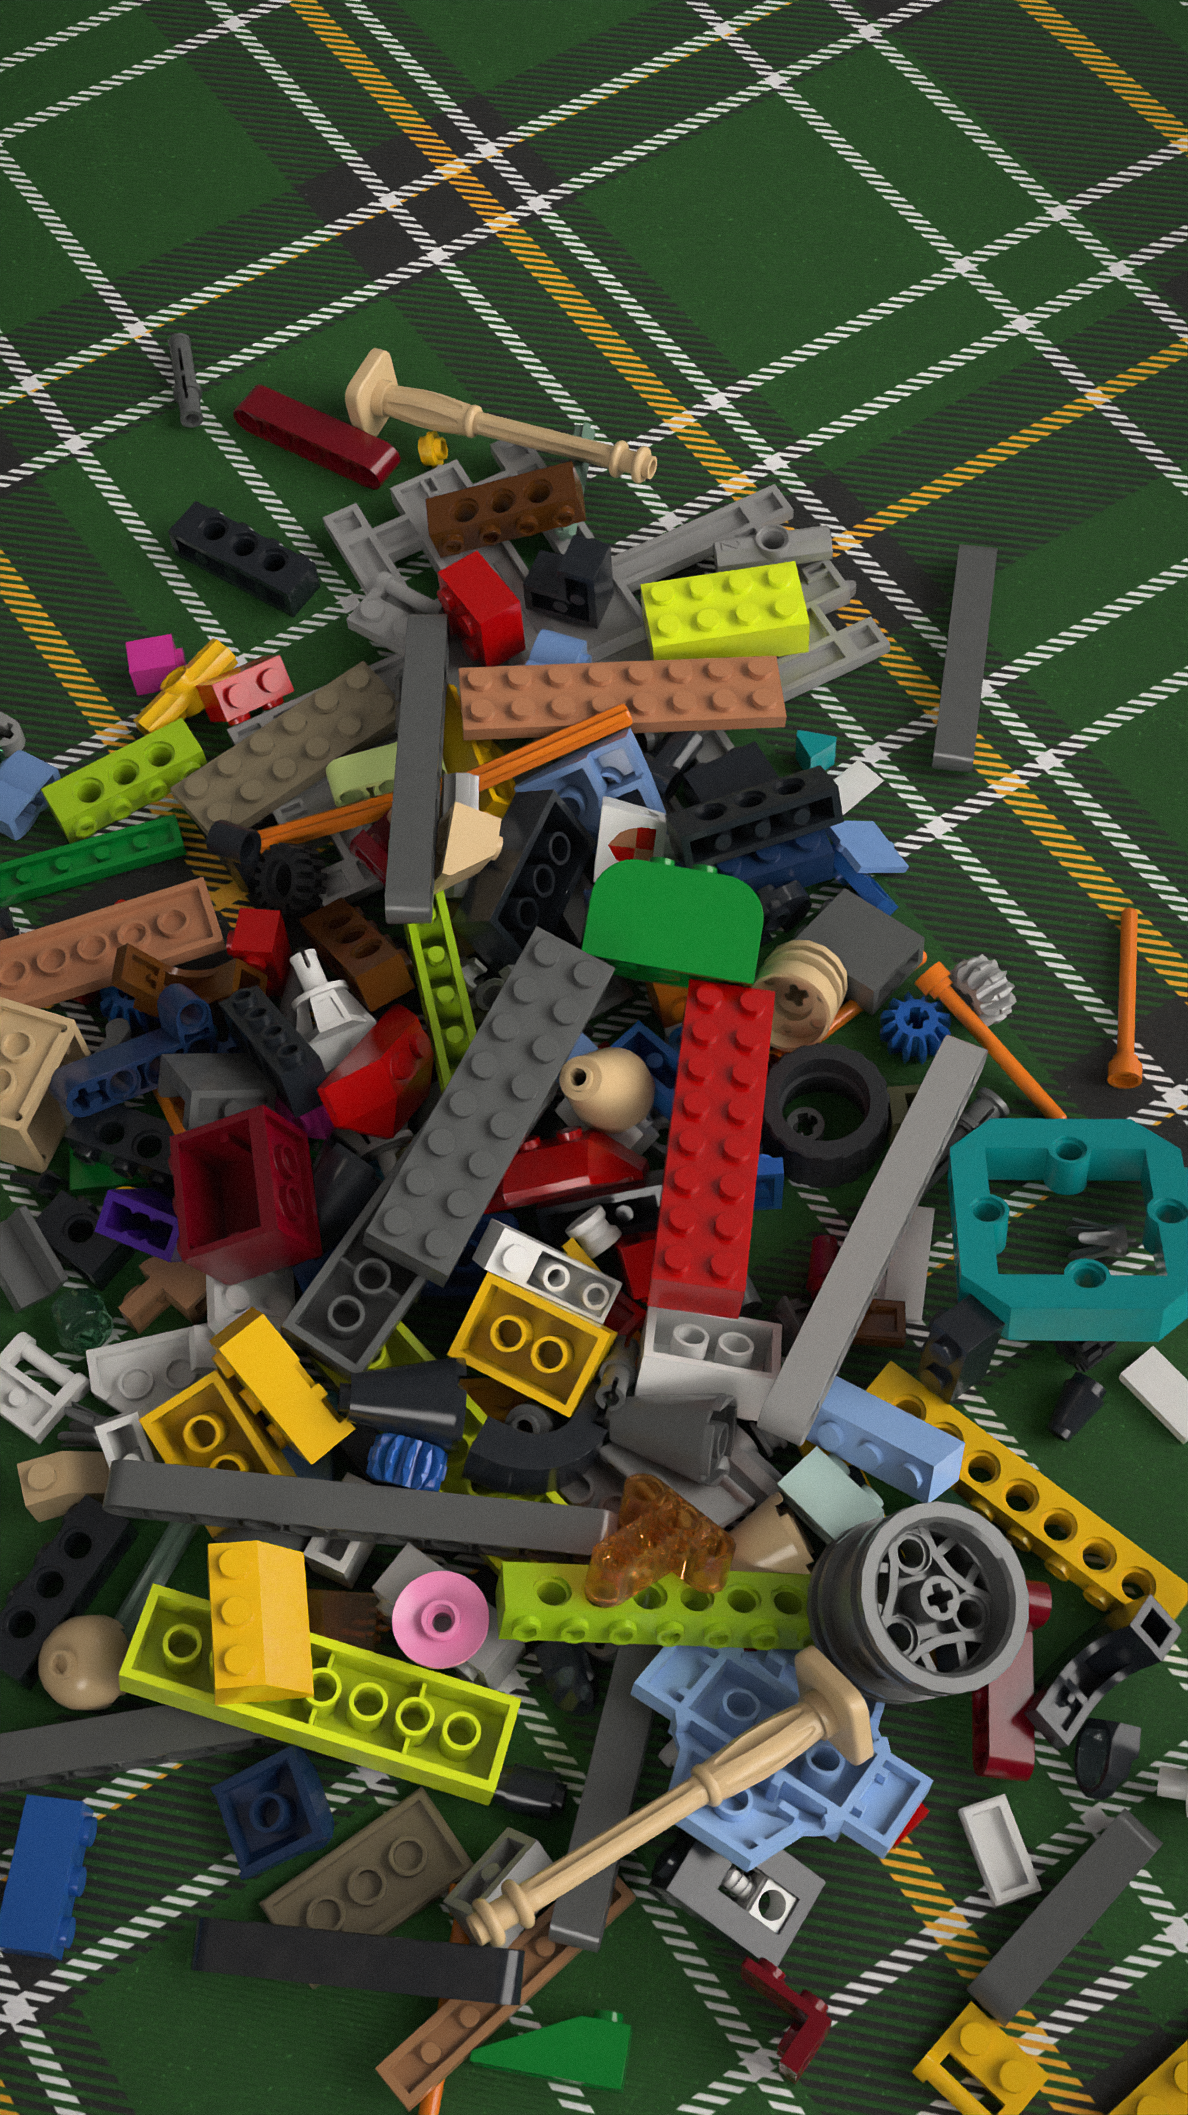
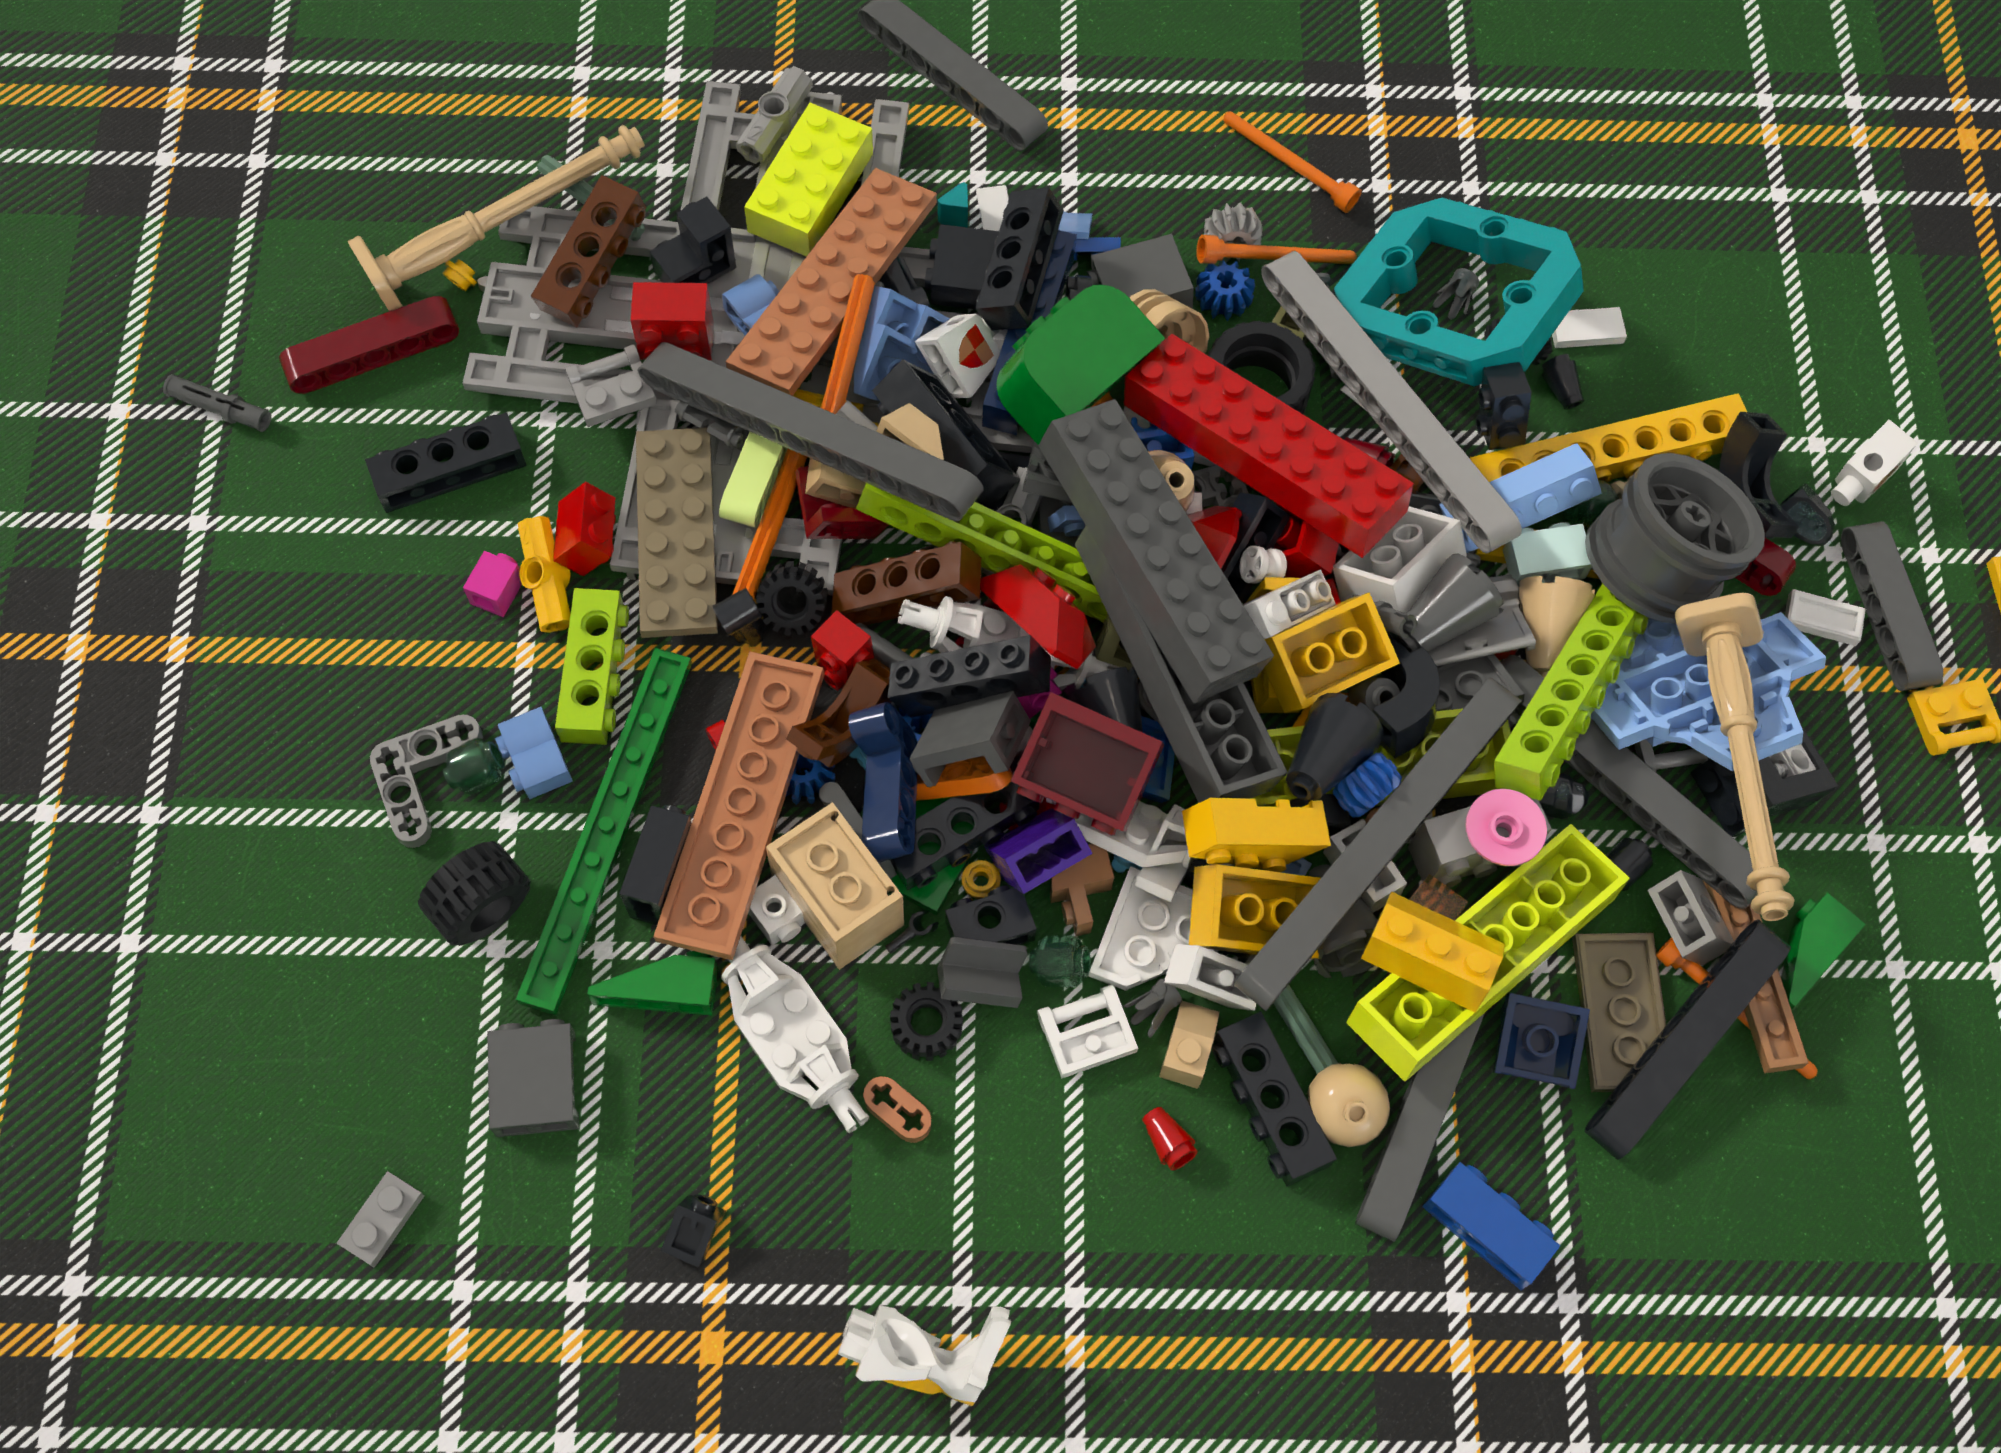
camera: 65 degrees left, 5 degrees up
(657, 1537) = (1536, 657): clear orange beam -> none
(799, 2042) = (1892, 789): dark red bracket -> none

